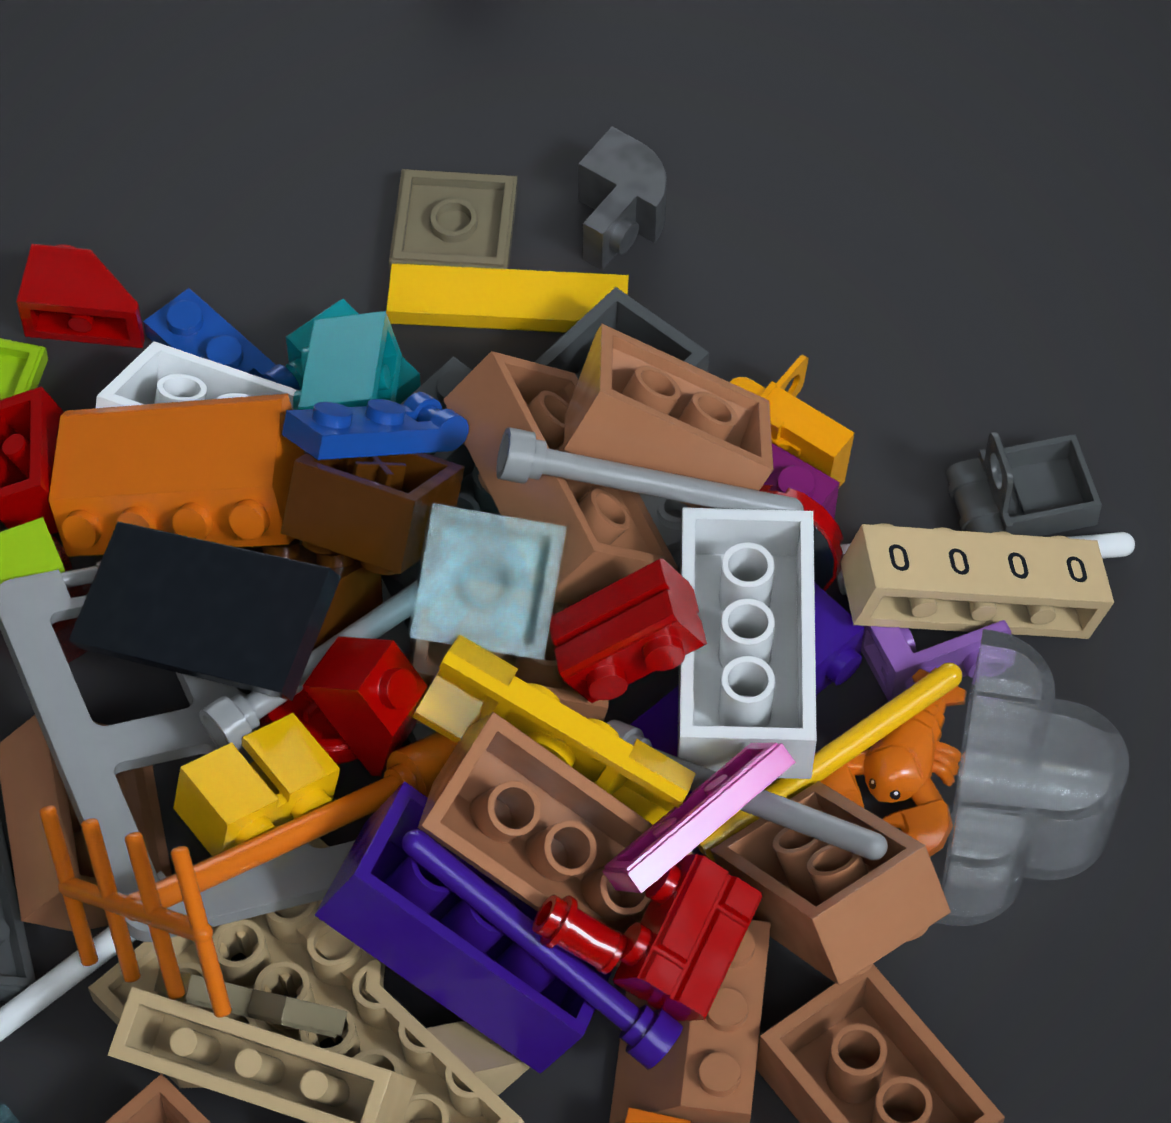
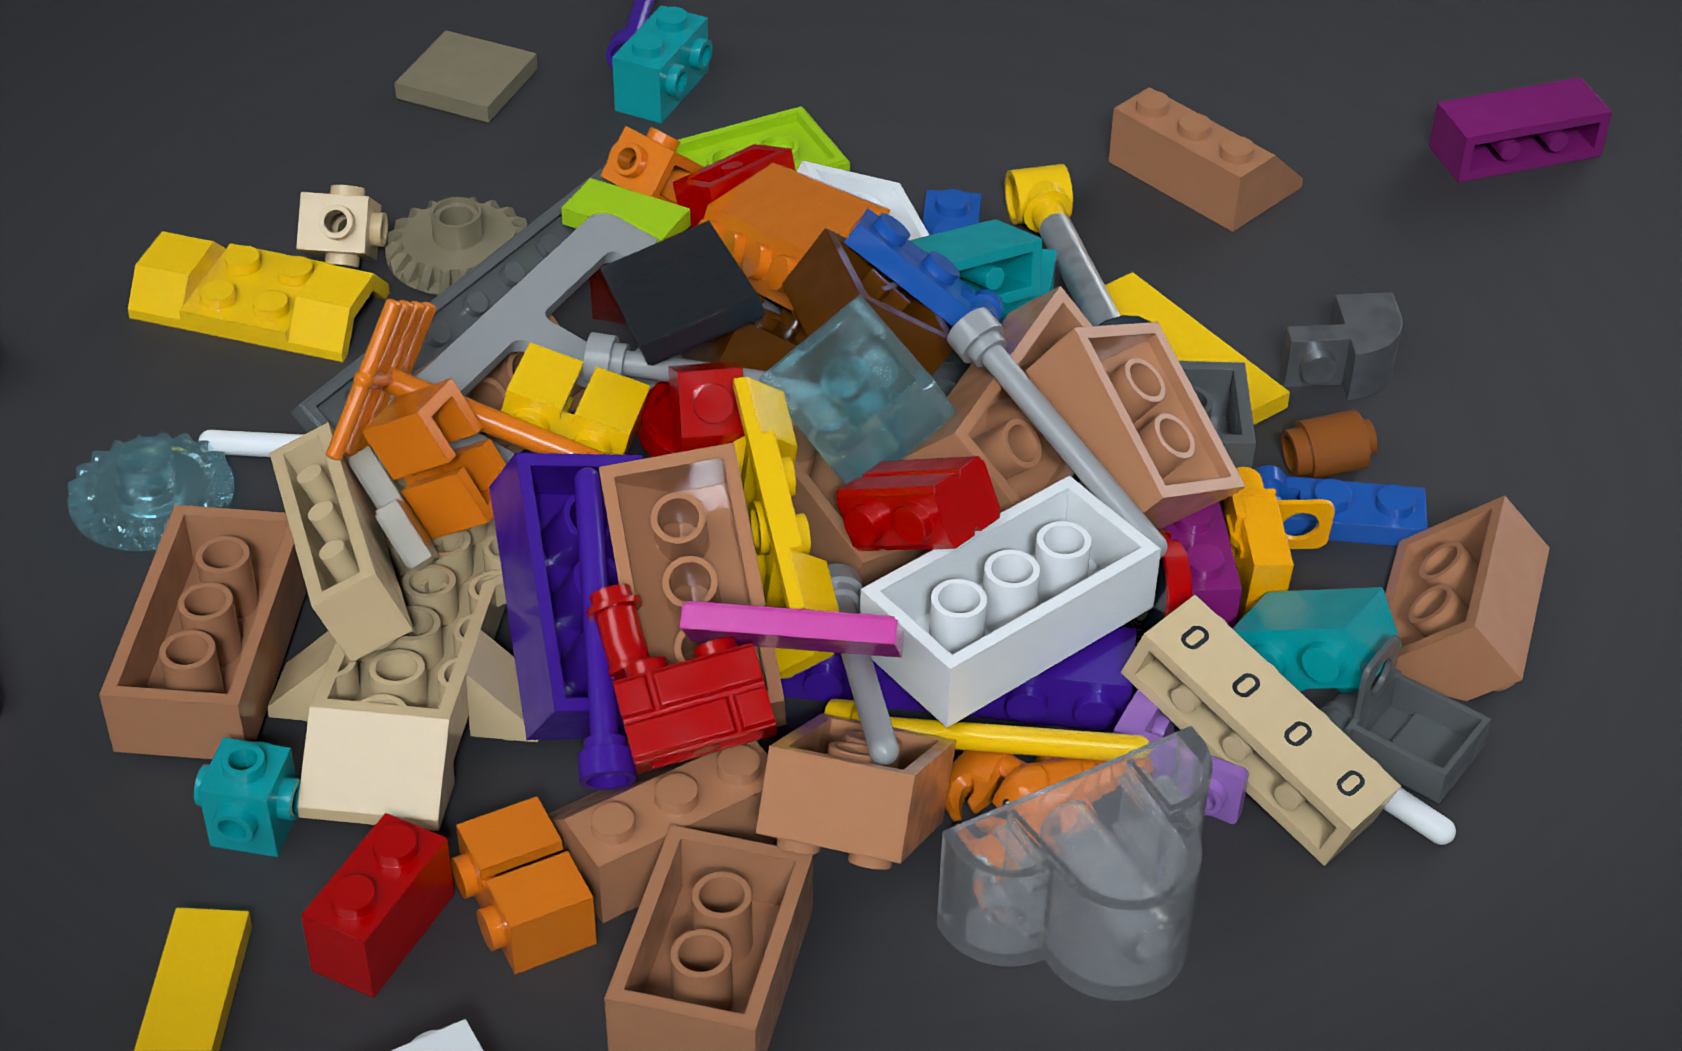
camera: 50 degrees right, 15 degrees down
(76, 299) = (899, 145): red slope -> none
(246, 252) = (1044, 203): none -> piece
(259, 928) = (443, 484): none -> orange piece
(303, 113) = (1197, 160): none -> nougat slope
(454, 219) = (1218, 285): dark tan tile -> none
(710, 299) = (1329, 445): none -> dark orange brick
(794, 326) = (1362, 510): none -> blue plate
(921, 473) = (1320, 634): none -> teal brick
(942, 358) = (1468, 600): none -> nougat slope

